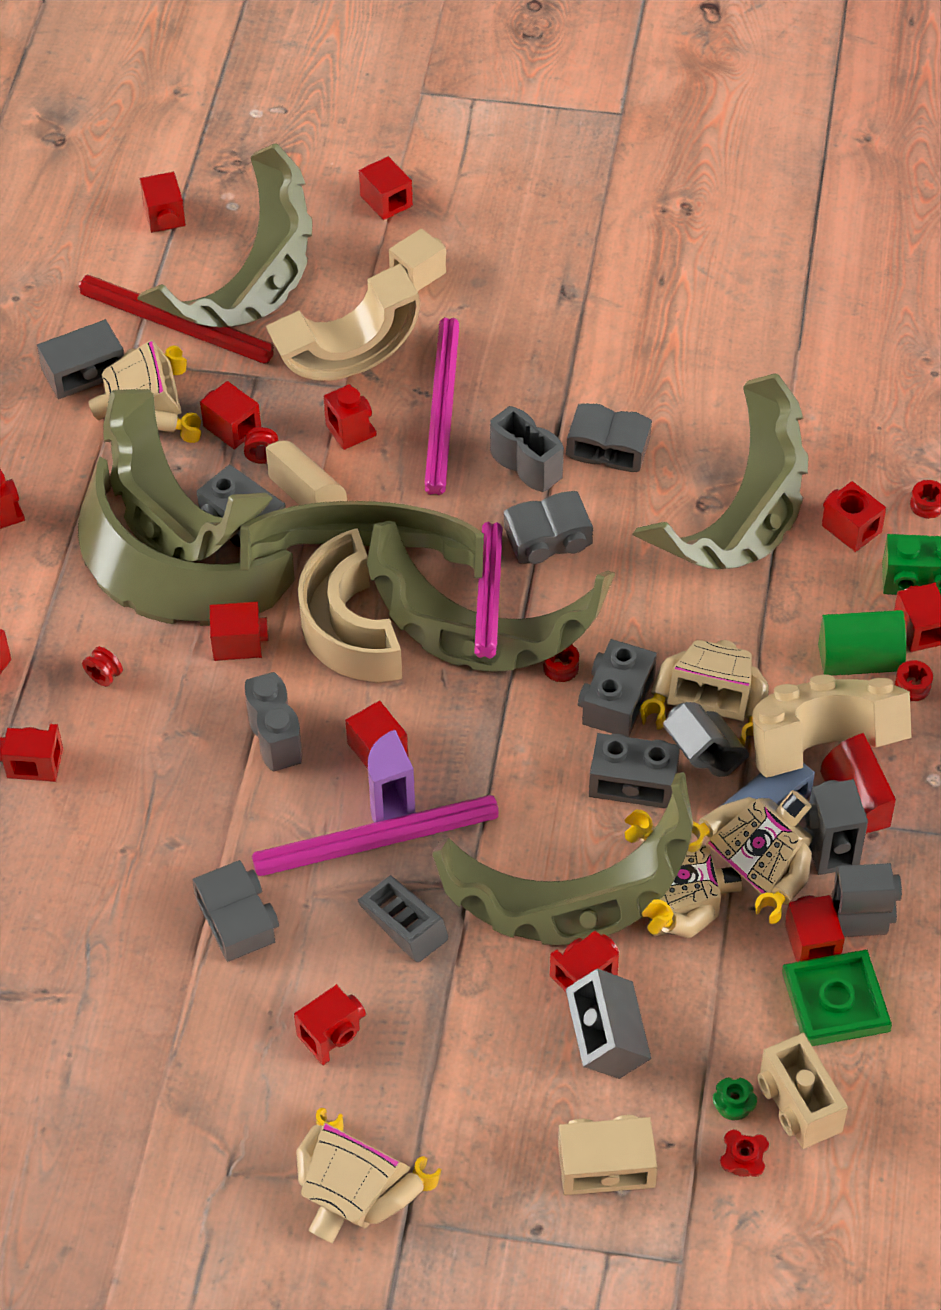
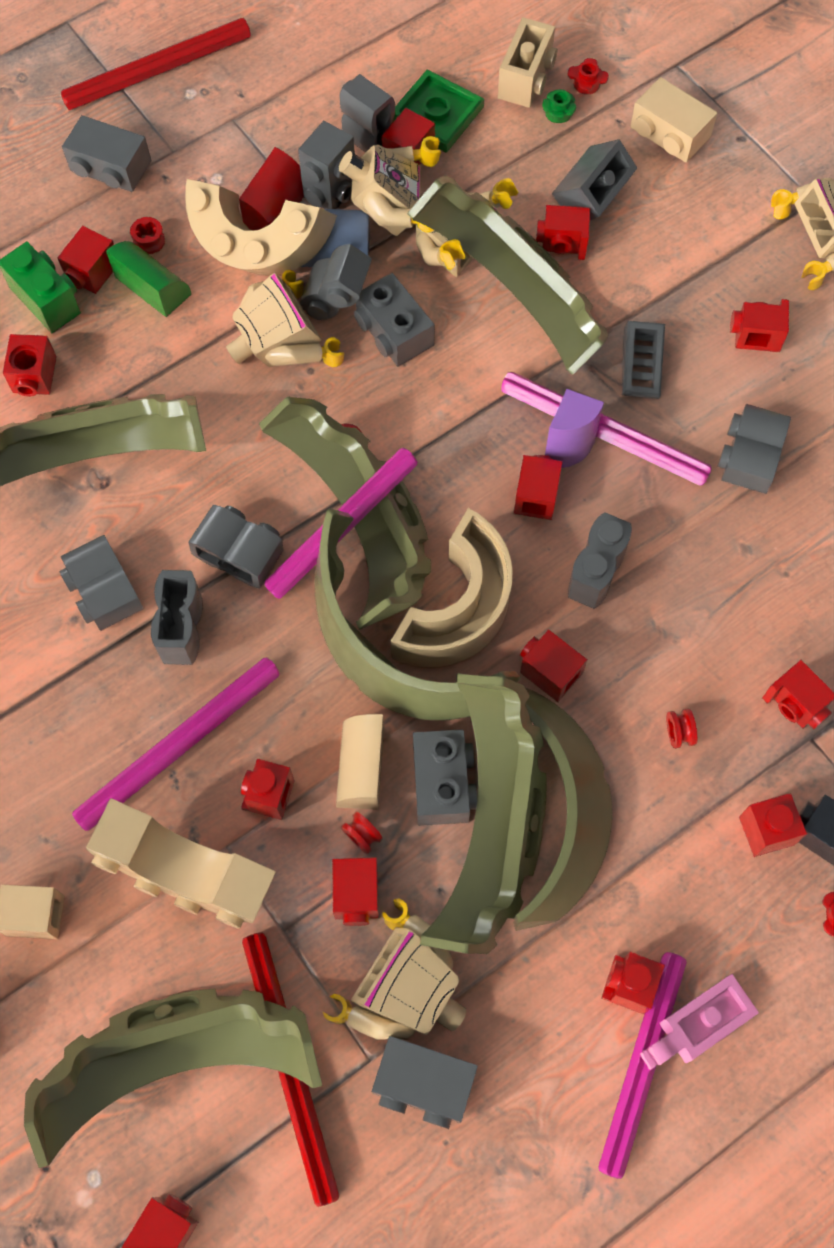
camera: 135 degrees left, 15 degrees up
(618, 687) = (339, 379): dark grey brick -> none

